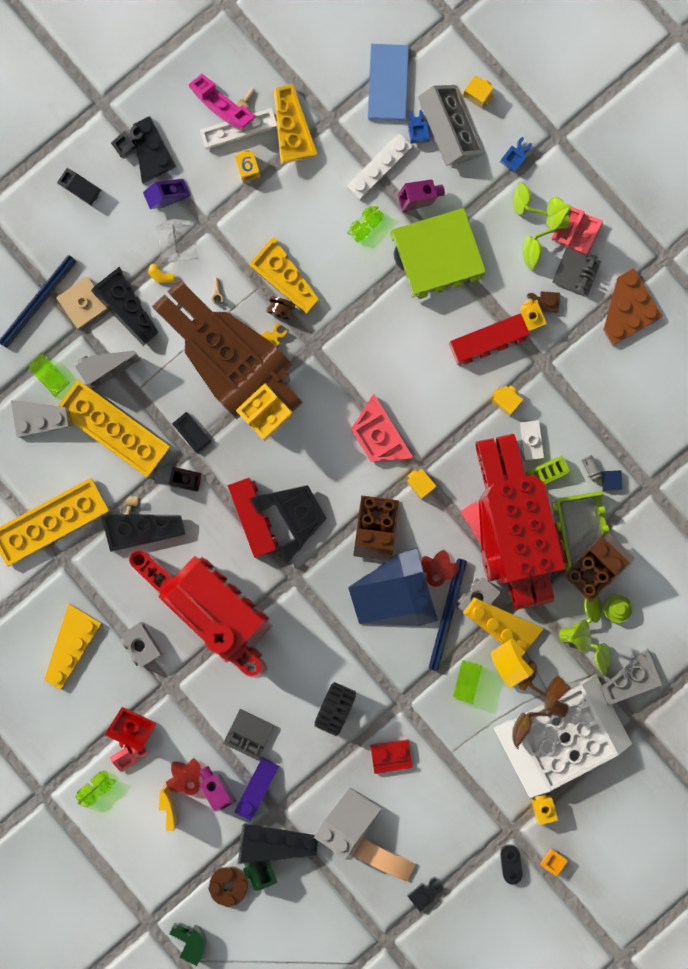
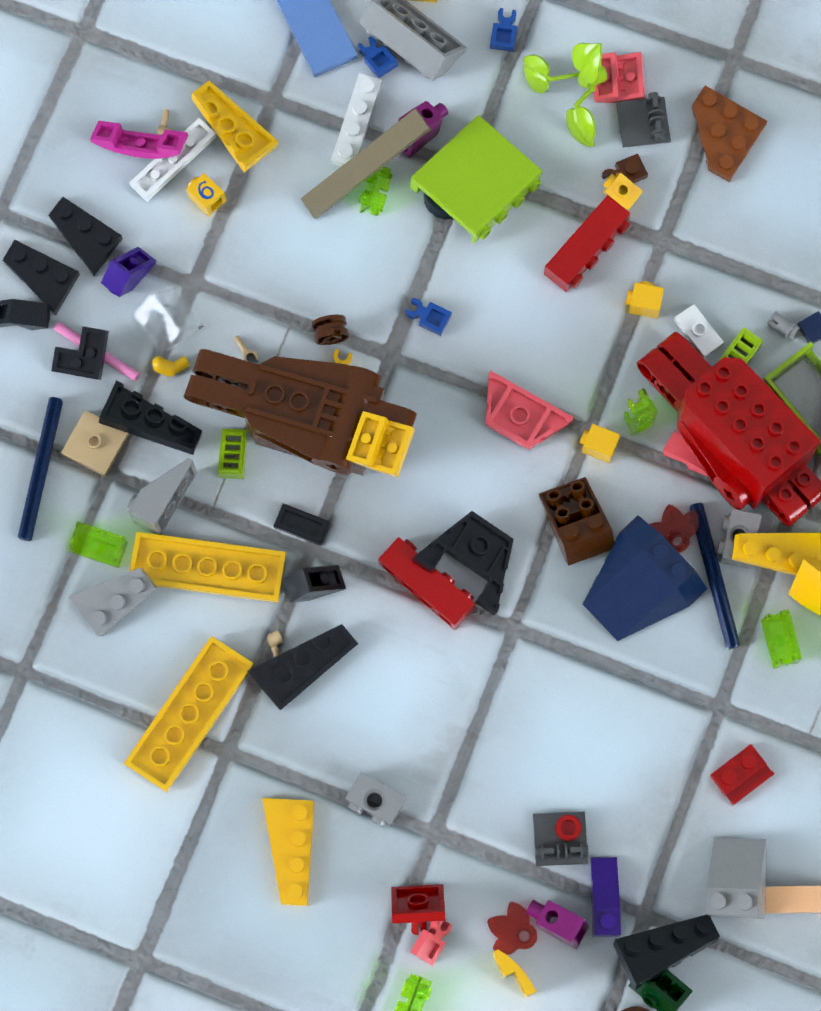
camera: 25 degrees left, 10 degrees down
(105, 242) = (87, 360): none -> black plate
(107, 164) = (42, 274): none -> black wing
(117, 239) = (109, 359): none -> bright pink bar
(125, 142) = (51, 239): black plate -> none
(157, 367) = (227, 472): none -> lime slope
(210, 609) = (437, 707): red piece -> none
(257, 731) = (568, 828): none -> red tile
(280, 272) = (306, 292): yellow wing -> none
(335, 709) = (646, 748): black tyre -> none
(355, 334) = (431, 318): none -> blue plate
(366, 203) = (365, 163): none -> dark tan tile
(459, 479) = (642, 412): none -> clear neon green hinge

